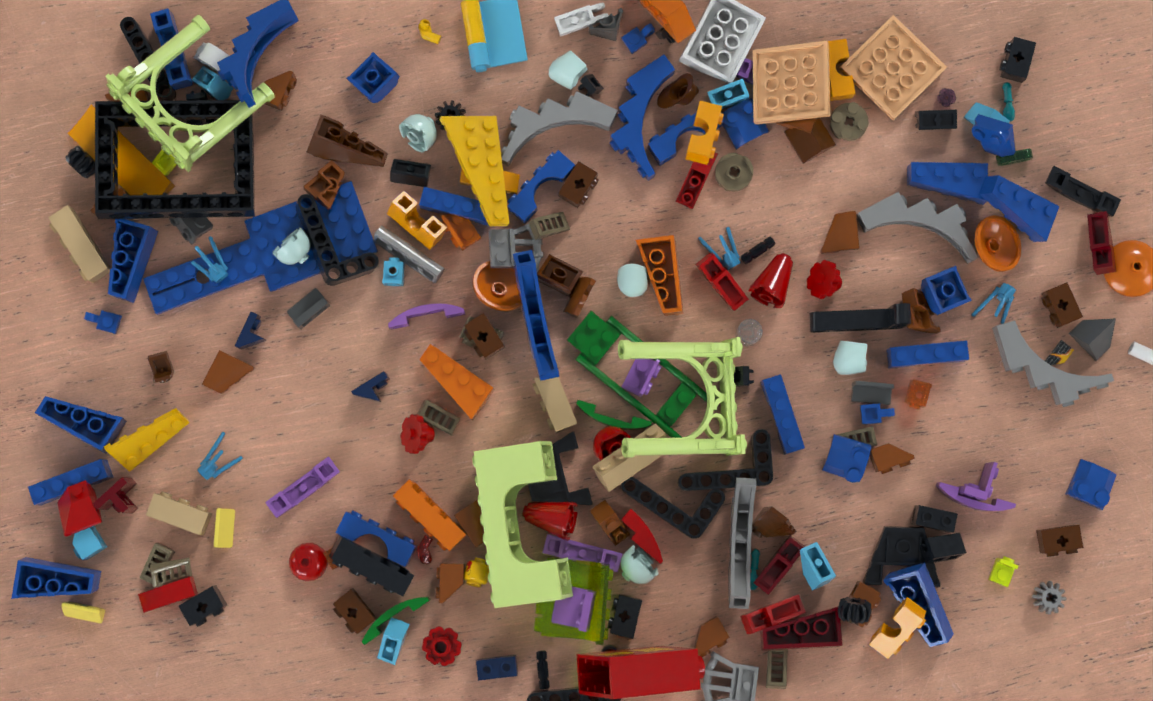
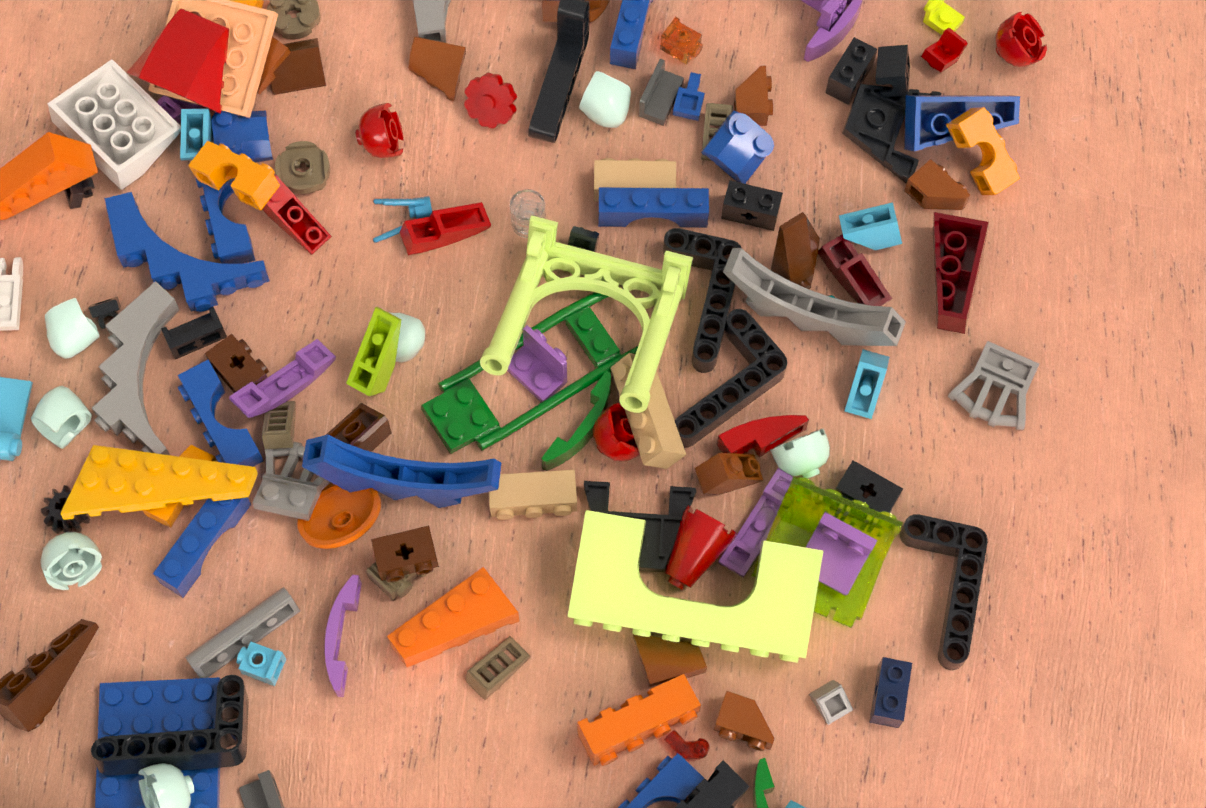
camera: 75 degrees left, 15 degrees down
(326, 184) = (89, 718): dark orange slope -> none
(367, 389) = (422, 755): dark blue slope -> none
(404, 212) = (181, 617): light orange arch -> none
(410, 173) = (124, 596): black slope -> none
(416, 434) = (511, 702): red plant -> none
(442, 646) = (836, 764): red plant -> none
(462, 230) = (236, 549): orange bracket -> none
(476, 572) = (744, 678): yellow head -> none
(482, 631) = (831, 701): none -> light grey slope
(510, 87) = (60, 416): none -> light aqua piece
(542, 666) = (911, 632): black axle -> none
(578, 218) = (285, 383): none -> medium lavender slope
(579, 296) = (402, 418): dark orange slope -> none
(594, 147) = (194, 334): none -> black hinge
(608, 27) = (36, 258): dark grey slope -> none
(610, 270) = (376, 354): none -> lime slope
(636, 39) = (67, 233): blue plate -> none
(639, 672) = (956, 480): red brick -> none
(663, 270) = (405, 292): orange wedge -> none
(678, 92) = (164, 200): reddish brown piece -> none
(702, 595) = (867, 384): none -> medium azure slope
(709, 635) = (926, 391): dark orange slope -> none
(757, 250) = (420, 172): black axle -> none
(772, 614) = (919, 304): red slope -> none
(773, 282) = (472, 163): red cone -> none
(774, 214) = (380, 132): none -> red cylinder
(777, 67) = (187, 59): none -> red wedge
(777, 685) = (1001, 334): dark tan slope -> none
(800, 395) = (633, 174): none -> tan brick
(806, 480) = (751, 205): none -> black brick
(854, 610) = (946, 189): black gear -> none
(973, 580) = (945, 51): none -> red bracket
(998, 632) = (1020, 40): none -> red cylinder

